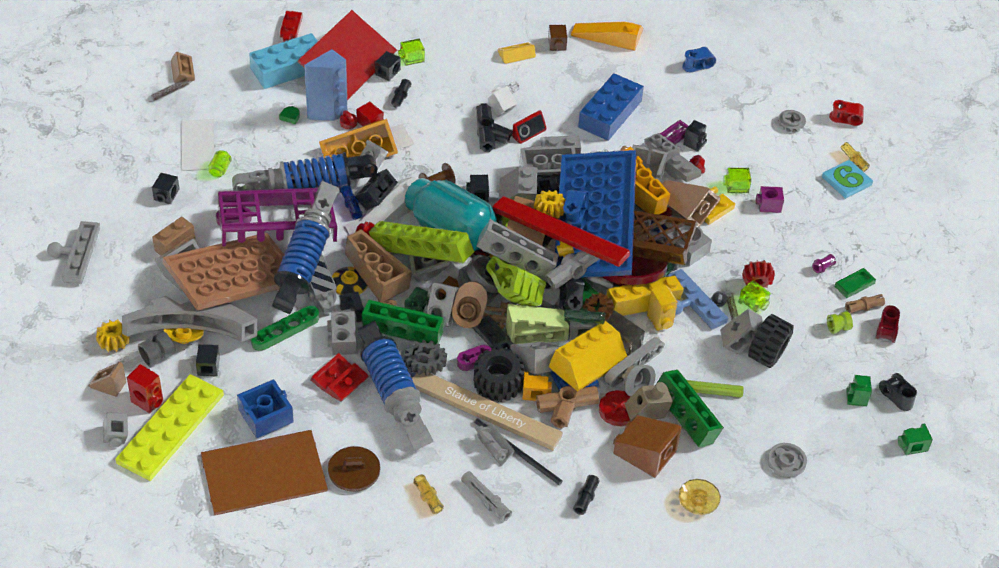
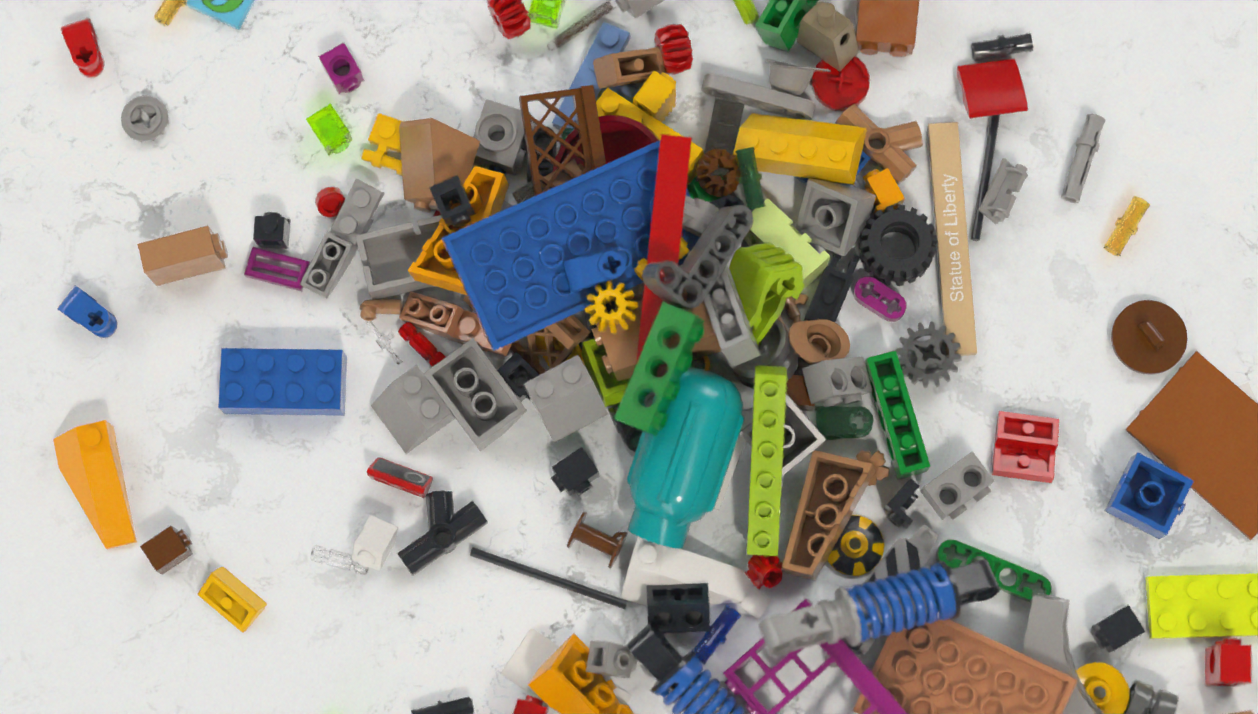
camera: 115 degrees left, 30 degrees up
(393, 383) = (1002, 363): piece -> none
(434, 159) = (549, 578): none -> black axle
(500, 197) = (656, 352): none -> green brick
(546, 244) = (730, 228): none -> dark grey beam
(562, 471) = (992, 88): none -> red slope
(654, 169) = (448, 193): none -> black brick
(689, 304) = (627, 67): none -> medium nougat brick
(689, 332) = (675, 48): none -> red gear
(703, 94) = (182, 255): none -> medium nougat brick
(715, 297) = (575, 48): black hinge -> none

